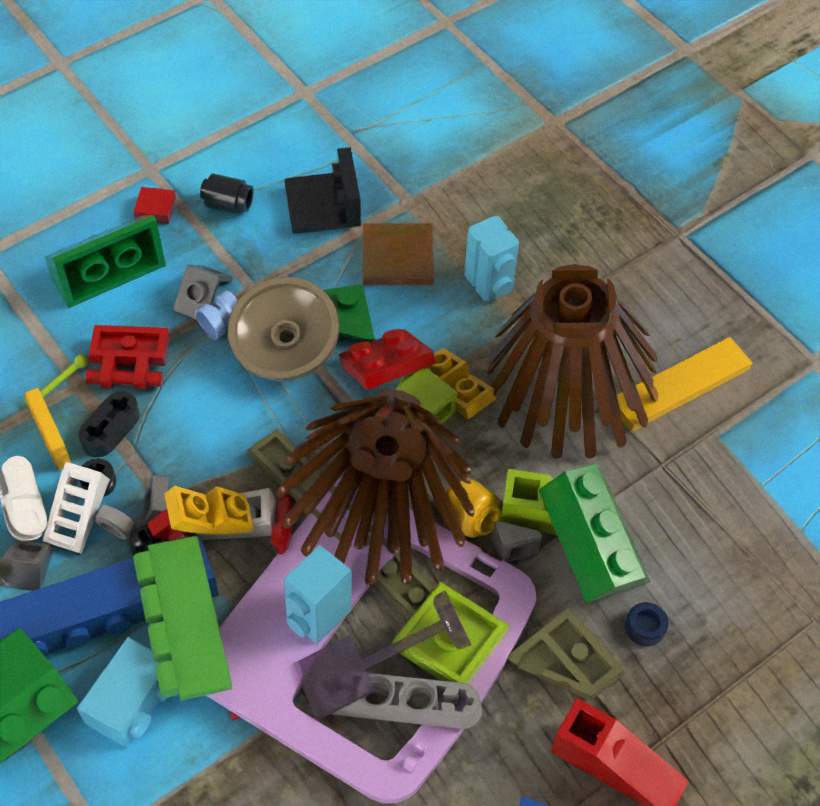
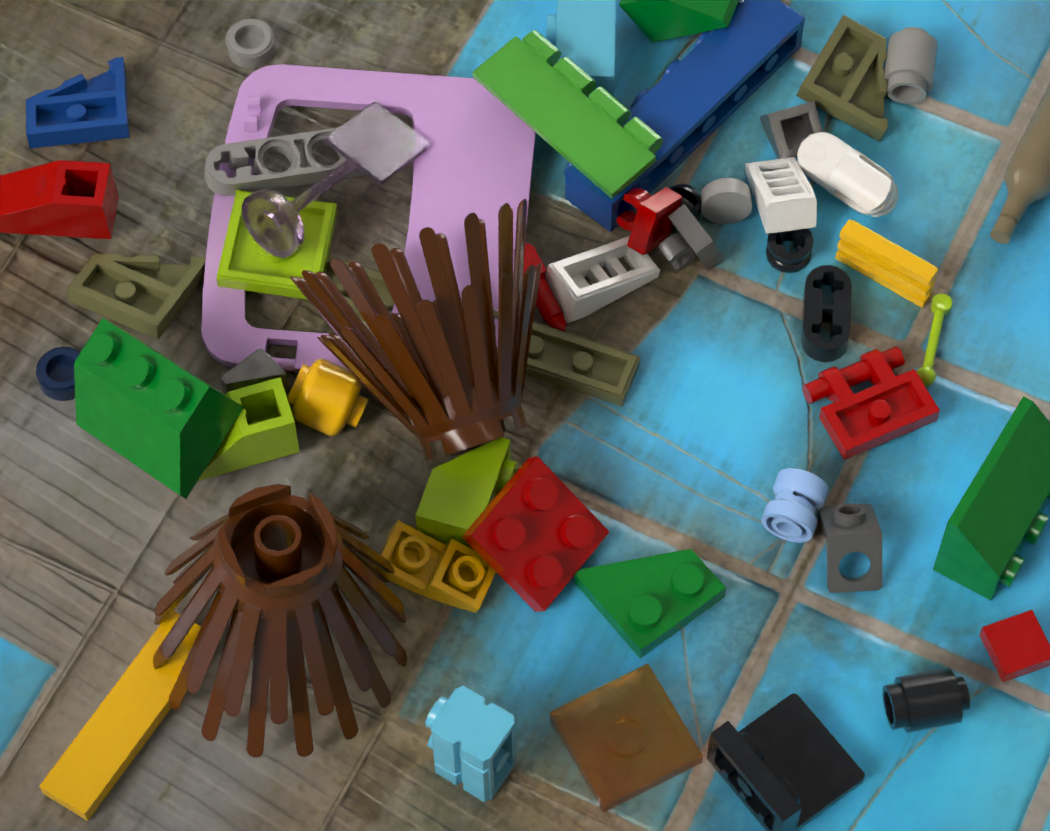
camera: 155 degrees right, 5 degrees up
(210, 513) = (617, 225): yellow slope -> none
(280, 310) = (695, 484): dark tan dish -> none
(317, 594) = (434, 179): medium azure brick -> none

